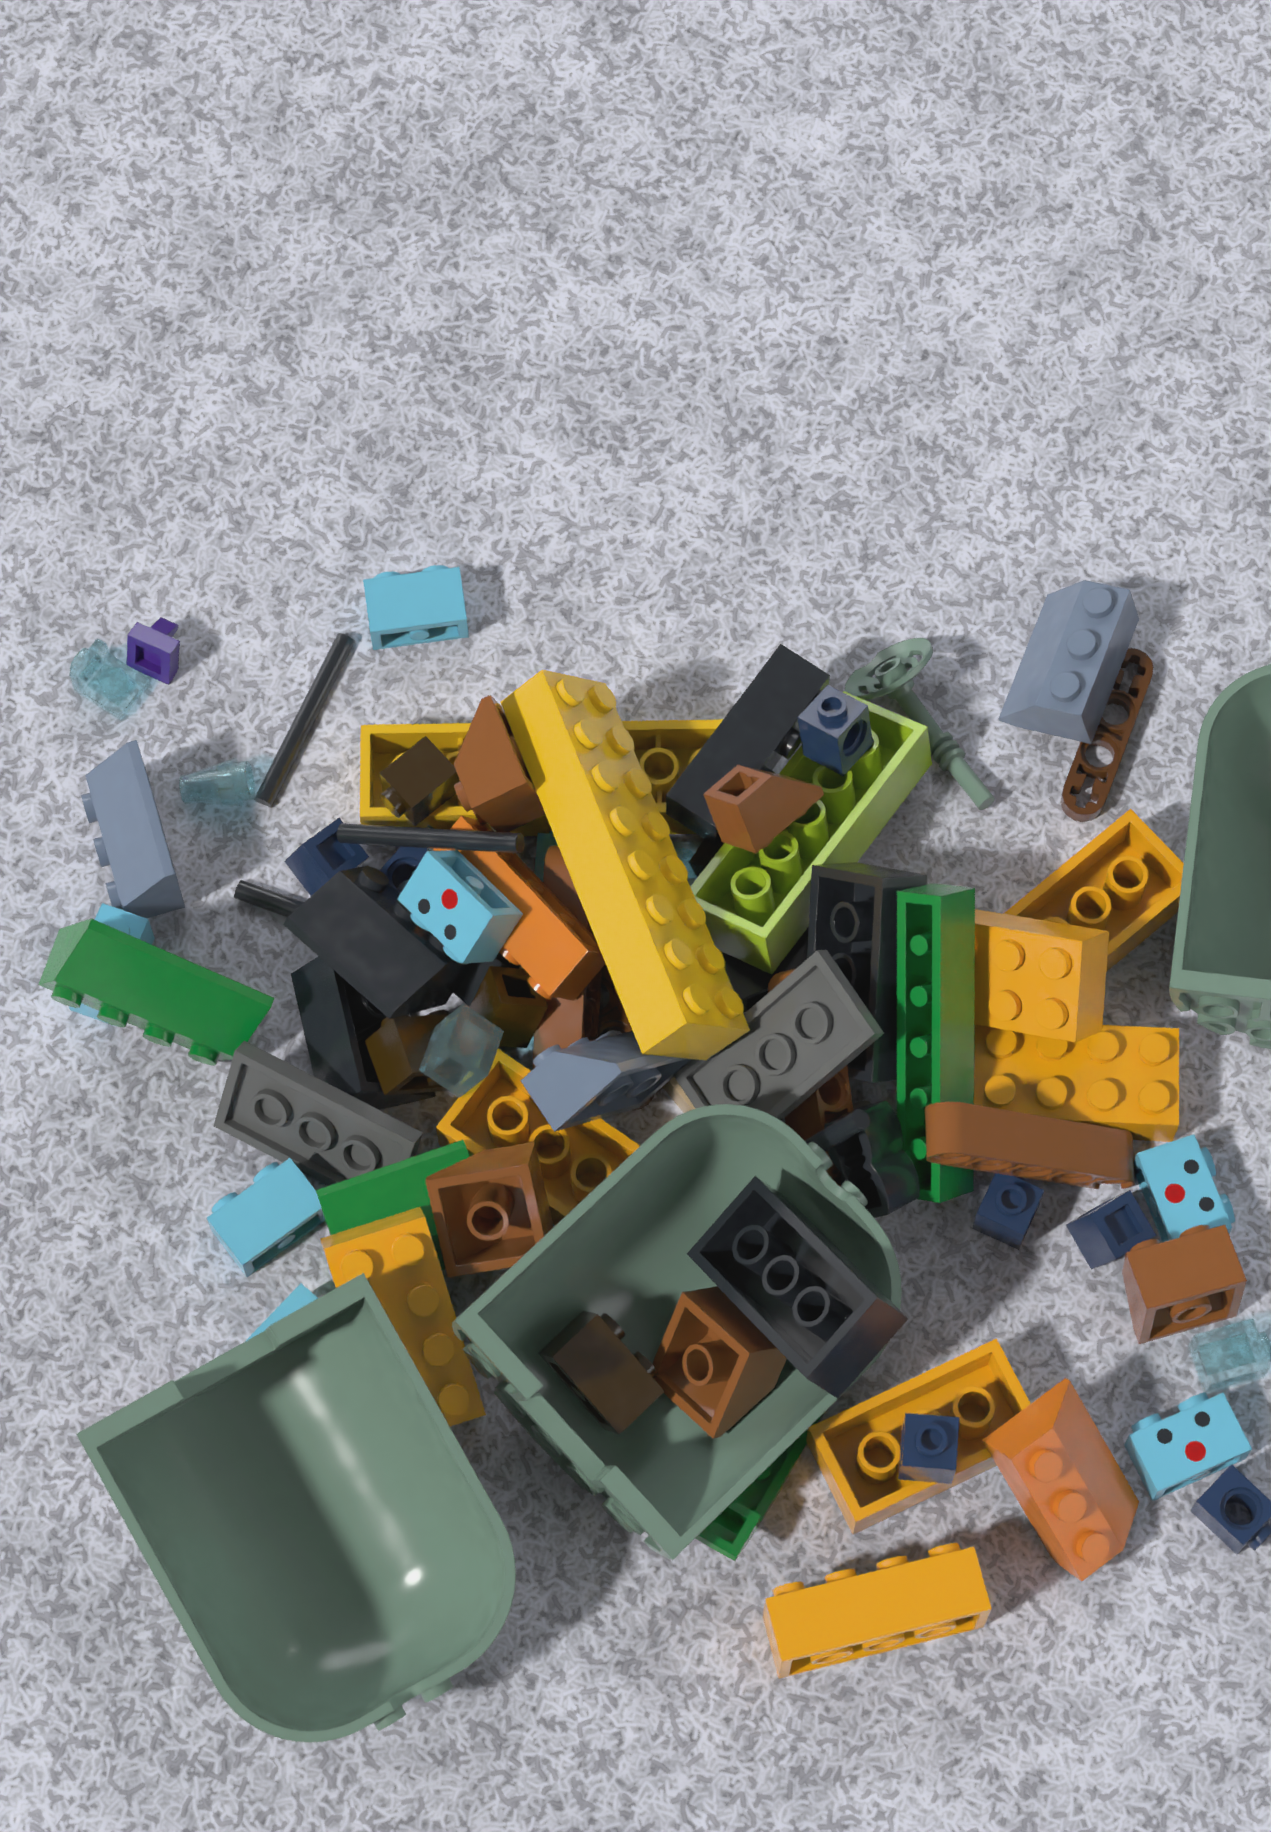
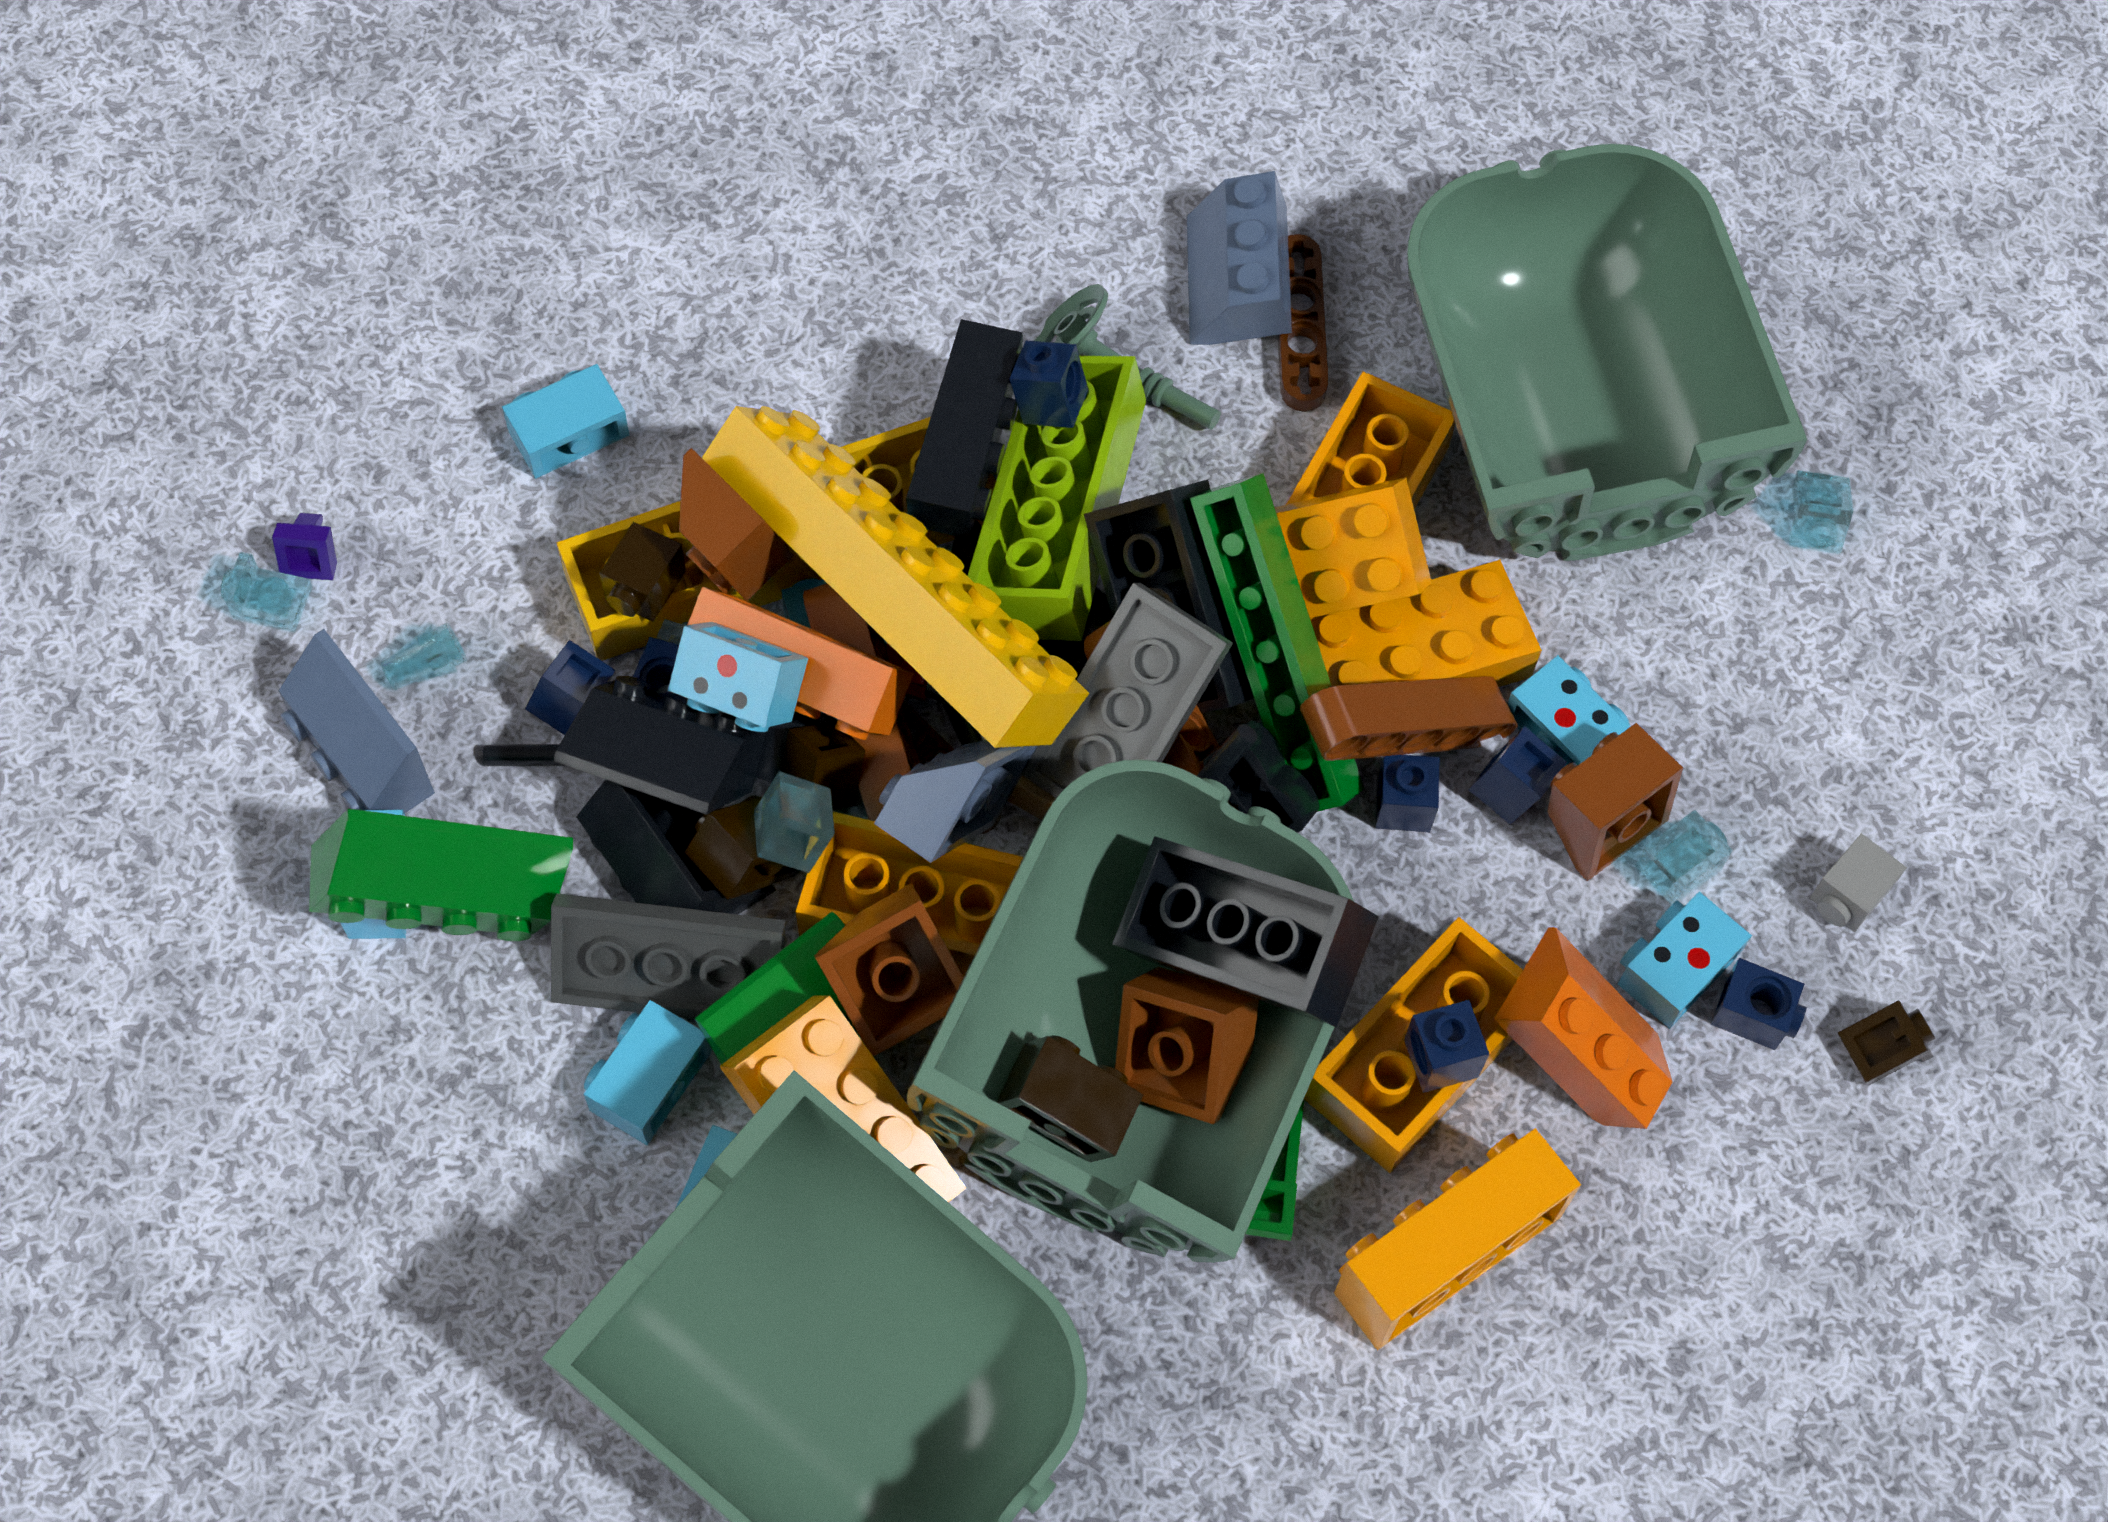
camera: 25 degrees left, 5 degrees down
(304, 720) = (490, 568): black bar -> none
(431, 838) = (675, 620): black bar -> none
(757, 805) = (1004, 475): dark orange slope -> none

